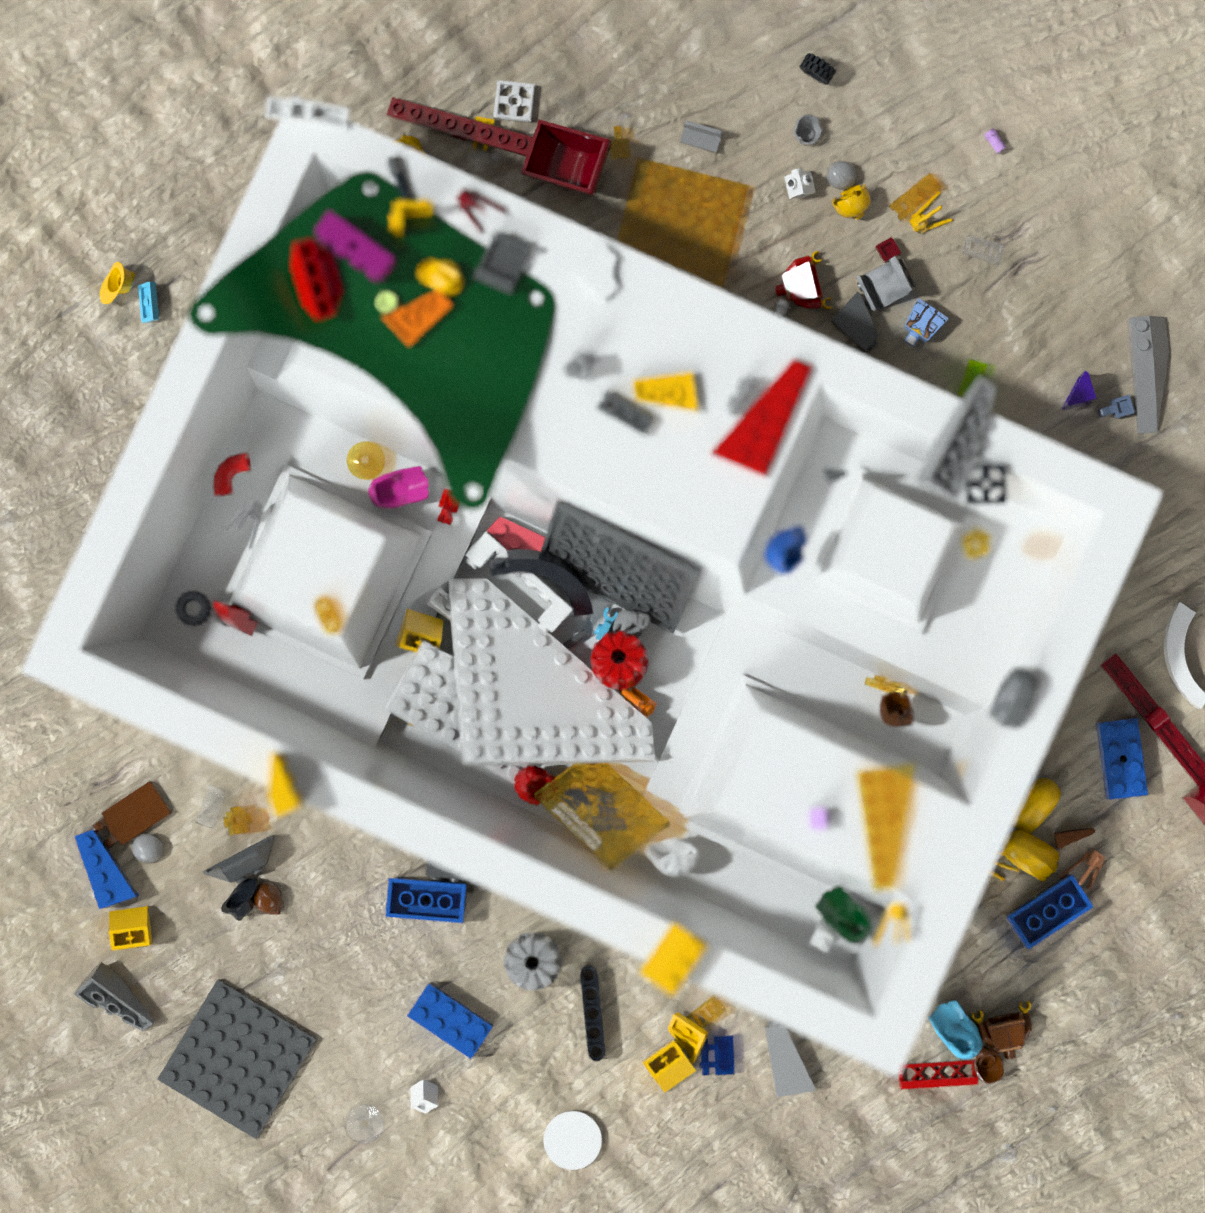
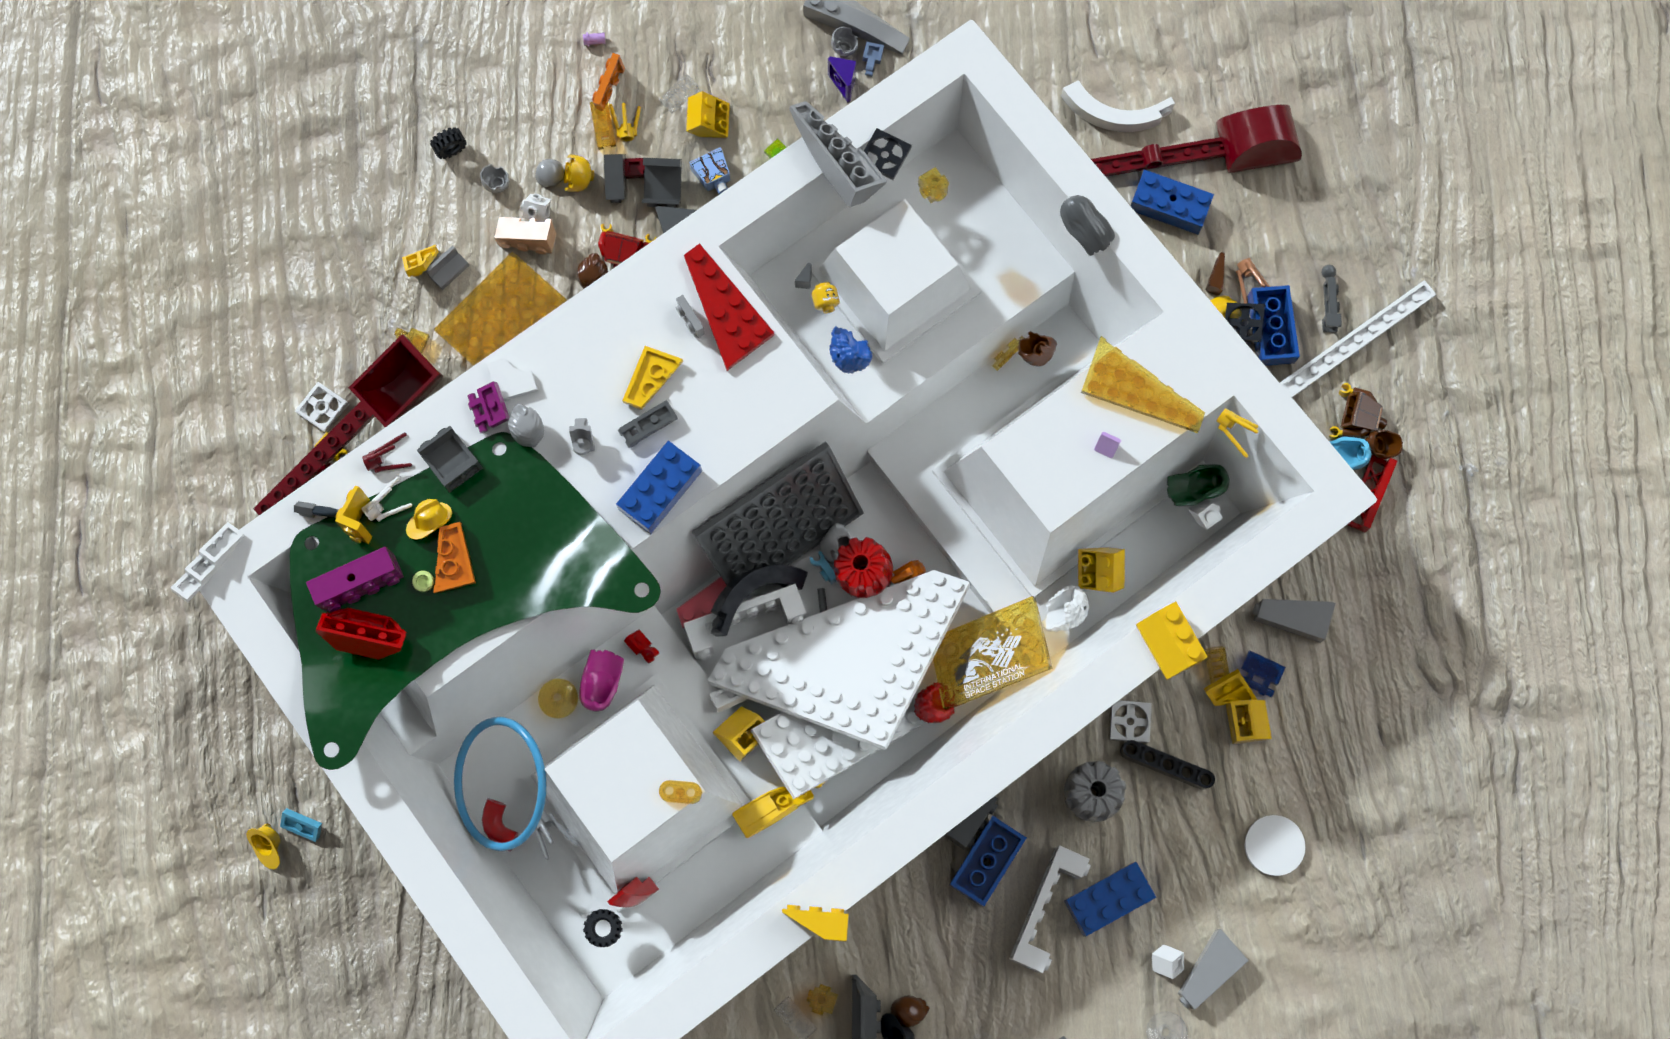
camera: 65 degrees left, 10 degrees down
(287, 487) = (541, 774): none -> dark azure piece
(365, 690) = (768, 810): none -> yellow piece
(365, 970) = (1064, 862): none -> white plate
(427, 223) = (374, 508): none -> white plant
(437, 1137) = (1212, 969): none -> light grey slope
(565, 311) = (525, 426): none -> light grey hair
(568, 272) = (493, 406): none -> magenta plate
(573, 454) = (659, 487): none -> blue brick
(618, 969) = (1115, 735): none -> white piece
(692, 108) = (419, 261): none -> yellow wing
(725, 869) = (1101, 569): none -> yellow slope
(765, 270) = (591, 270): none -> reddish brown hair
(768, 189) = (526, 235): none -> wedge
(824, 502) = (825, 297): none -> yellow head
(869, 237) = (615, 177): none -> dark grey slope
(936, 182) = (613, 67): none -> orange wing
(974, 288) = (707, 116): none -> yellow slope
(1029, 869) = (1260, 308): none -> black piece
(1079, 994) = (1358, 339): none -> white plate
(1084, 962) = (1331, 319): none -> dark grey plate
(1117, 374) = (844, 41): none -> light grey hair

